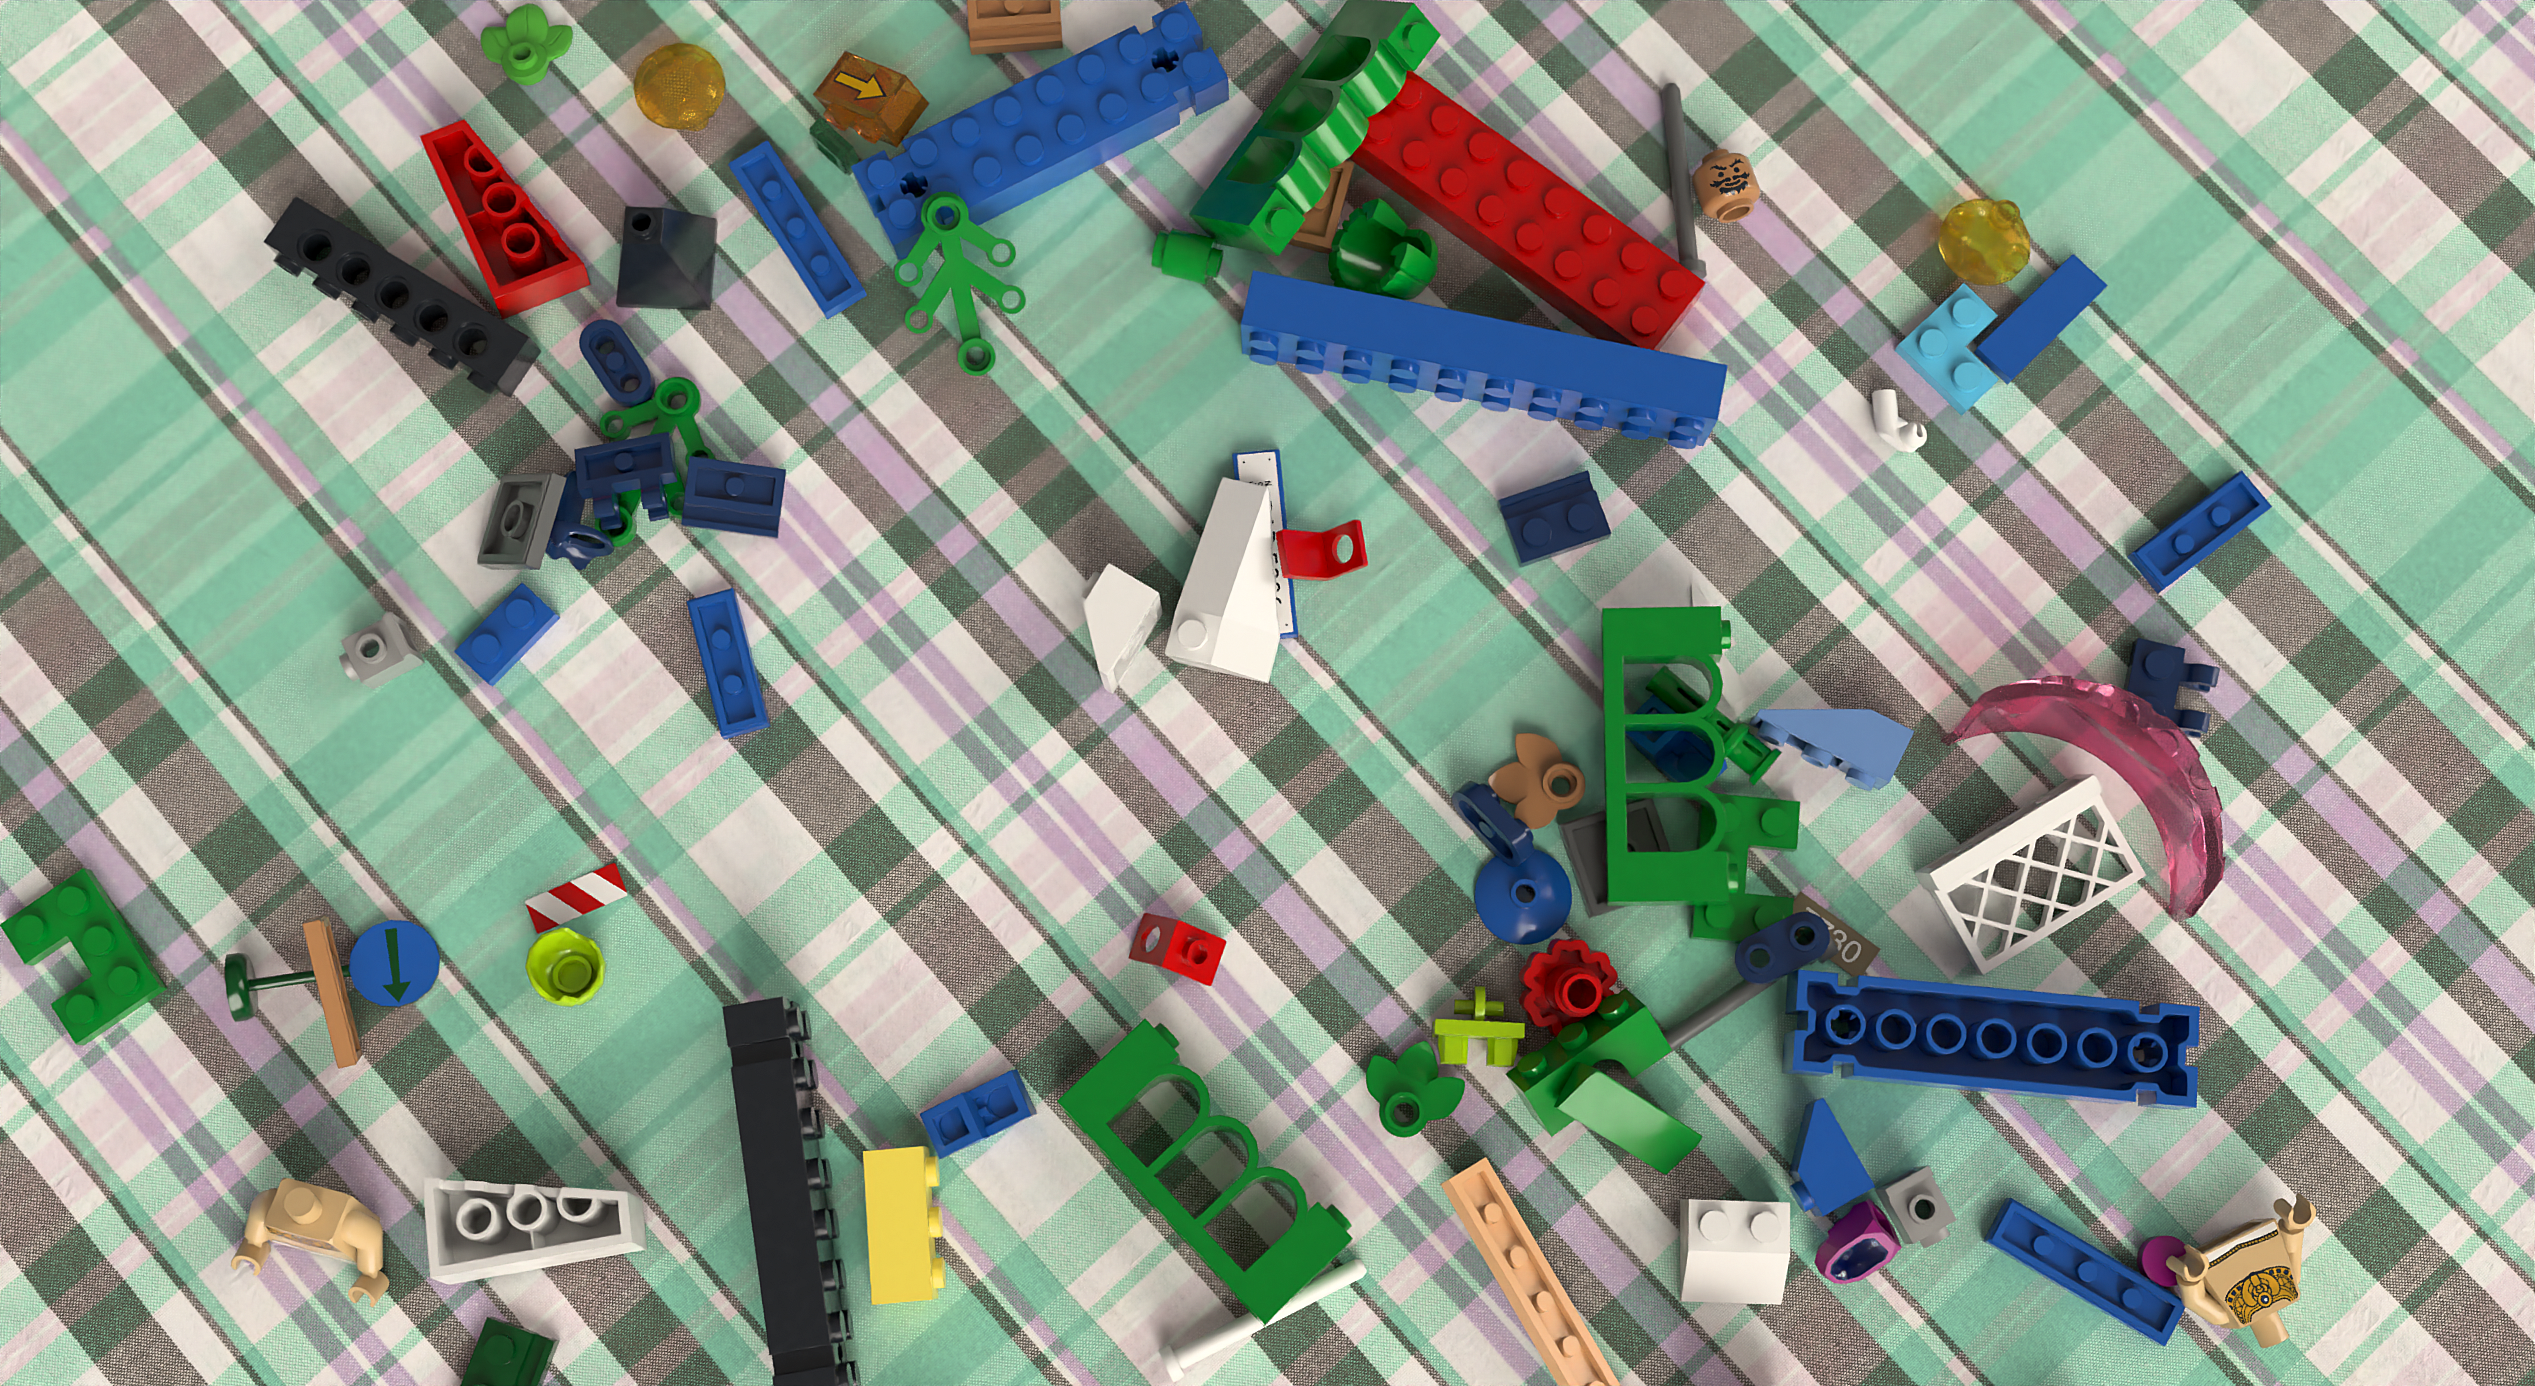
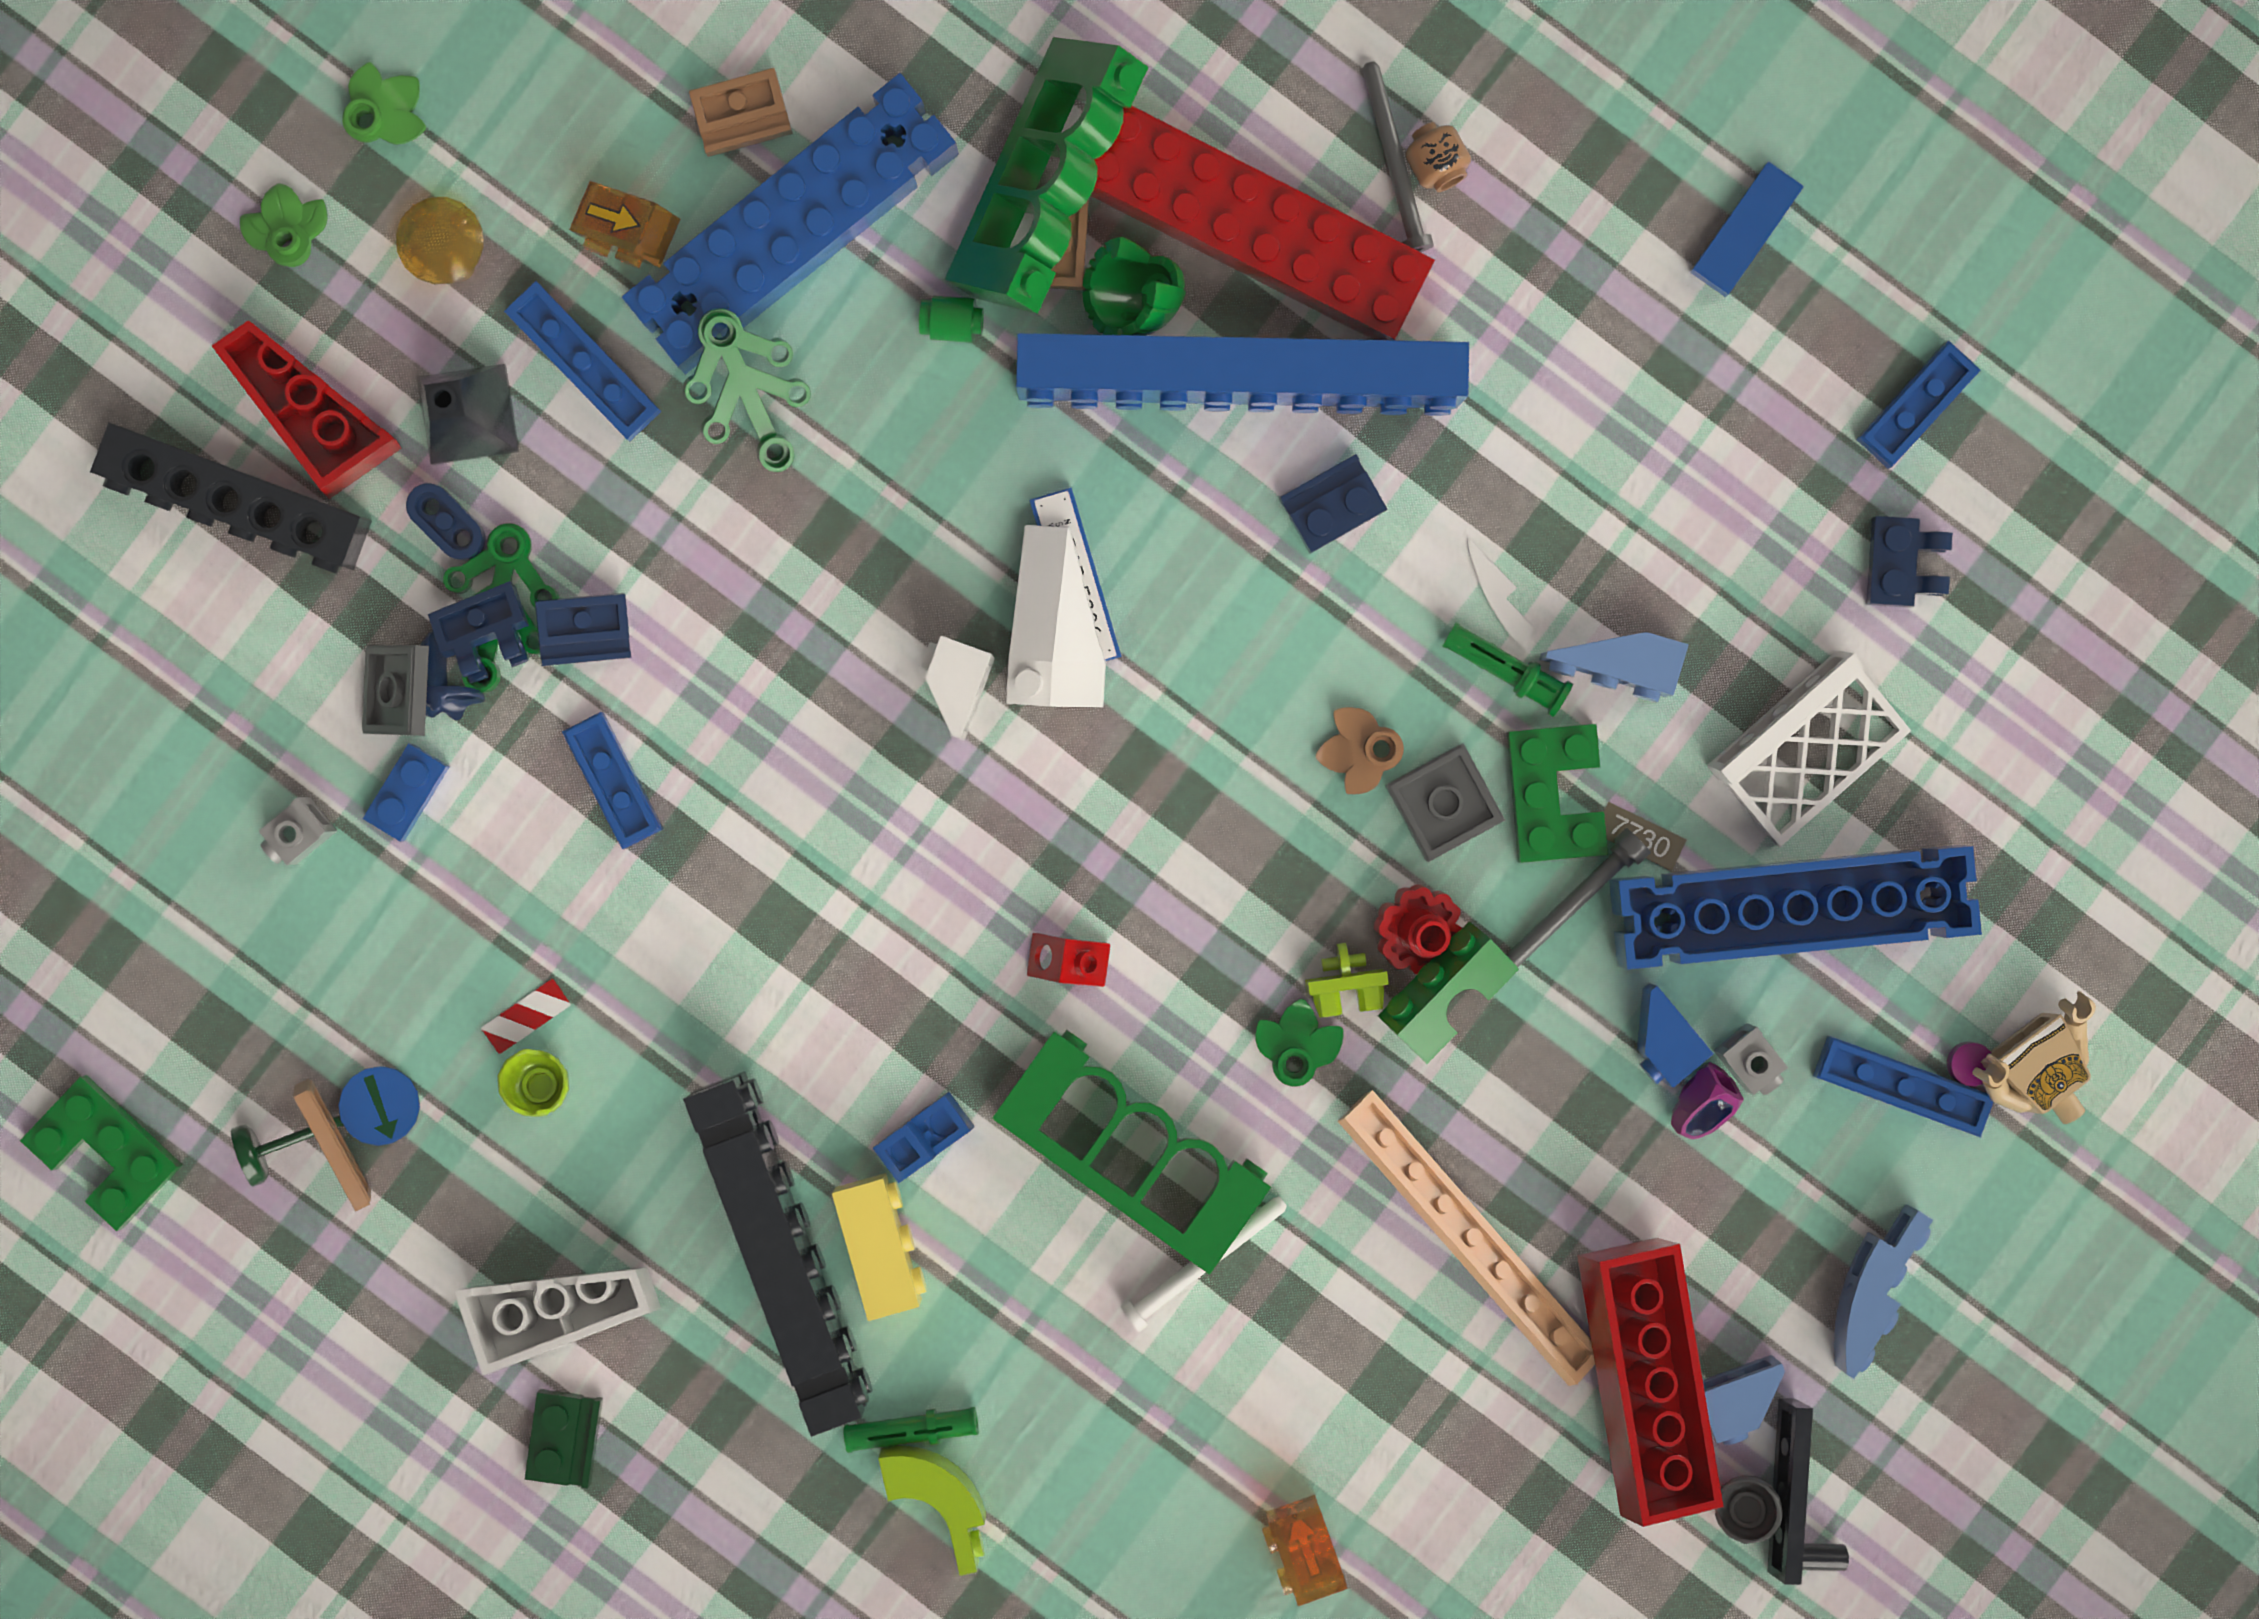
camera: 15 degrees left, 10 degrees up
(318, 1223) = (375, 1345): tan torso -> none
(833, 146) = (599, 275): clear green tile -> none
(1314, 554) = (1122, 579): red bracket -> none
(1493, 824) = (1315, 786): dark blue plate -> none
(1520, 921) = (1342, 847): blue dish -> none
(1626, 1119) = (1488, 1037): slope -> none
(1663, 637) = (1491, 818): green fence -> none
(1675, 753) = (1476, 695): blue slope -> none
(1734, 1251) = (1599, 1127): white slope -> none
(1782, 948) = (1601, 861): dark blue plate -> none
(1892, 428) = (1628, 360): white arm -> none
(1940, 351) = (1658, 274): medium azure plate -> none
(1985, 241) = (1685, 164): clear yellow dish -> none
(2136, 744) = (1893, 619): clear pink windscreen -> none

